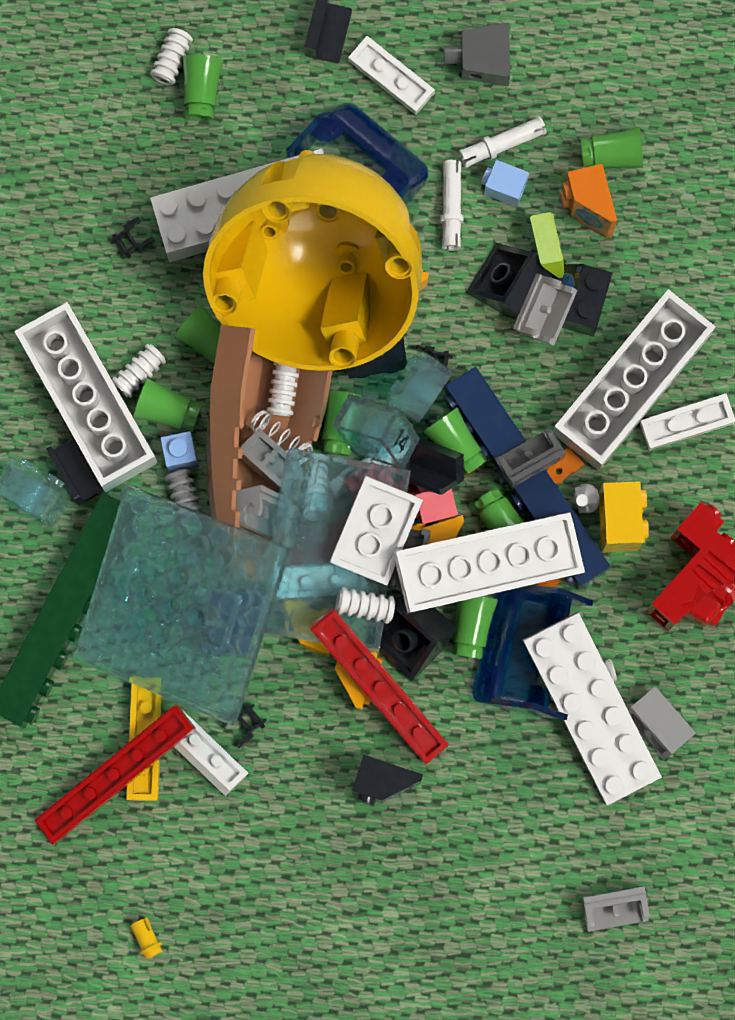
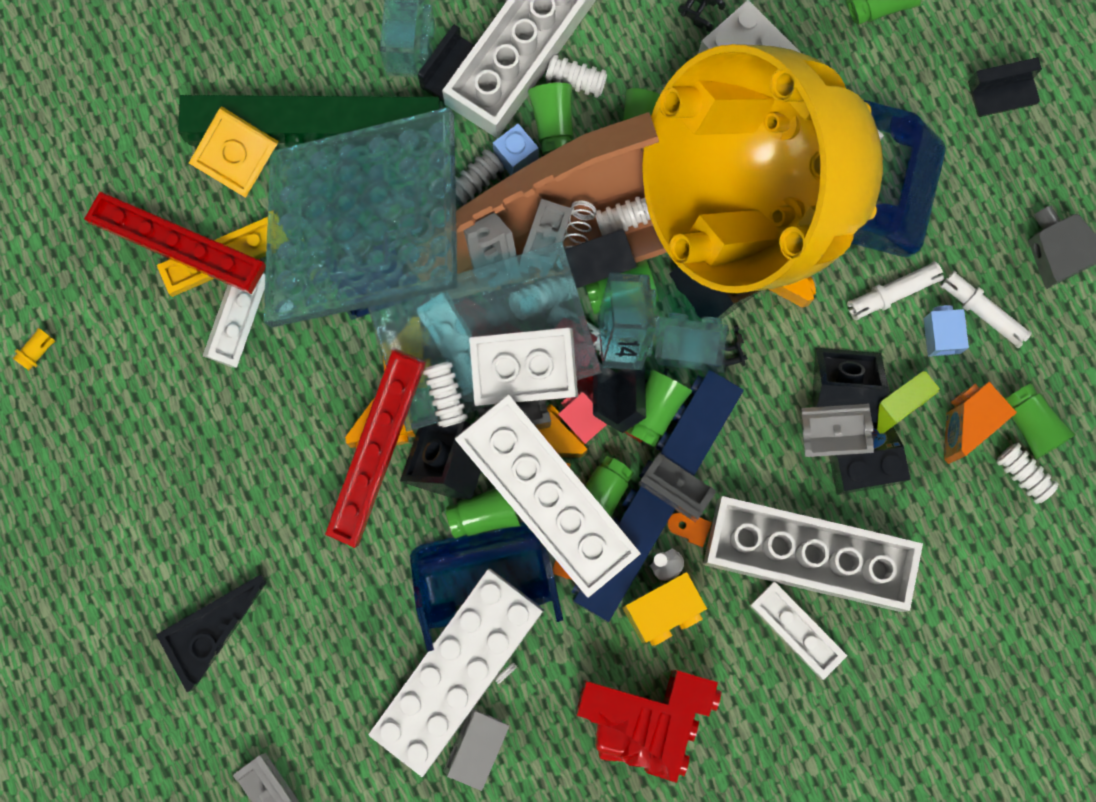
camera: 60 degrees right, 0 degrees up
(61, 687) = (233, 152): none -> yellow tile
(259, 723) = (276, 351): black piece -> none
(315, 424) = (599, 257): none -> black panel
(382, 781) = (284, 496): black slope -> none
(391, 75) = (994, 170): white plate -> none
(461, 907) = (202, 635): none -> black wing
(650, 179) = (1027, 473): none -> white piece

